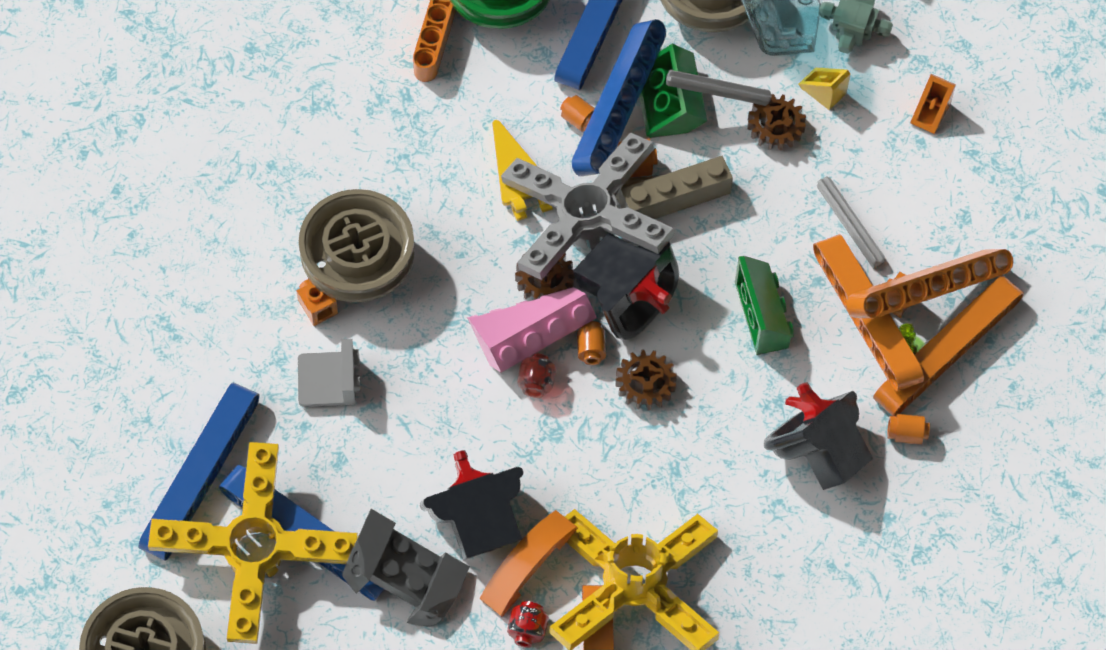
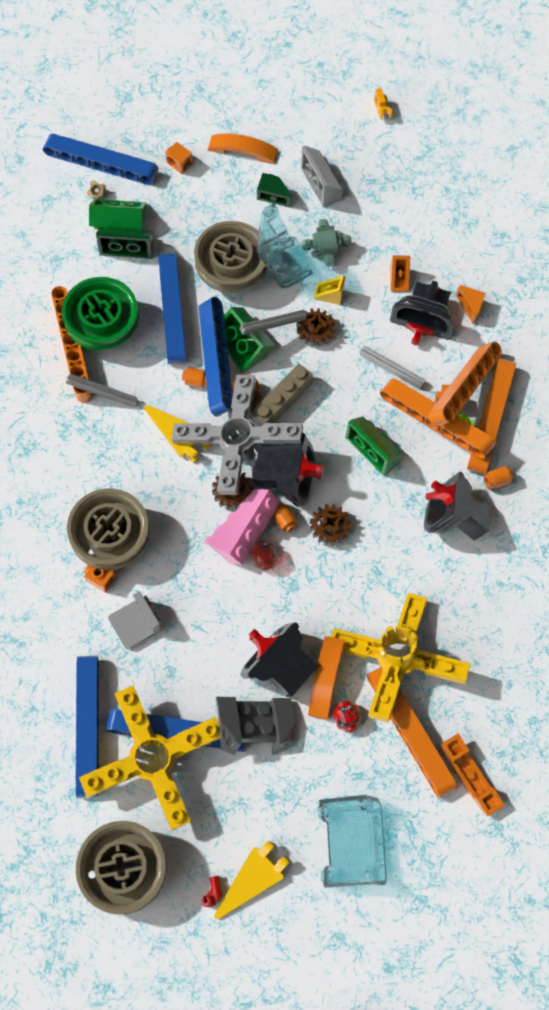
camera: 30 degrees left, 5 degrees up
(447, 73) = (101, 390): none -> light grey axle
(936, 169) = (425, 312): none -> black piece
(1013, 186) = (470, 301): none -> orange slope

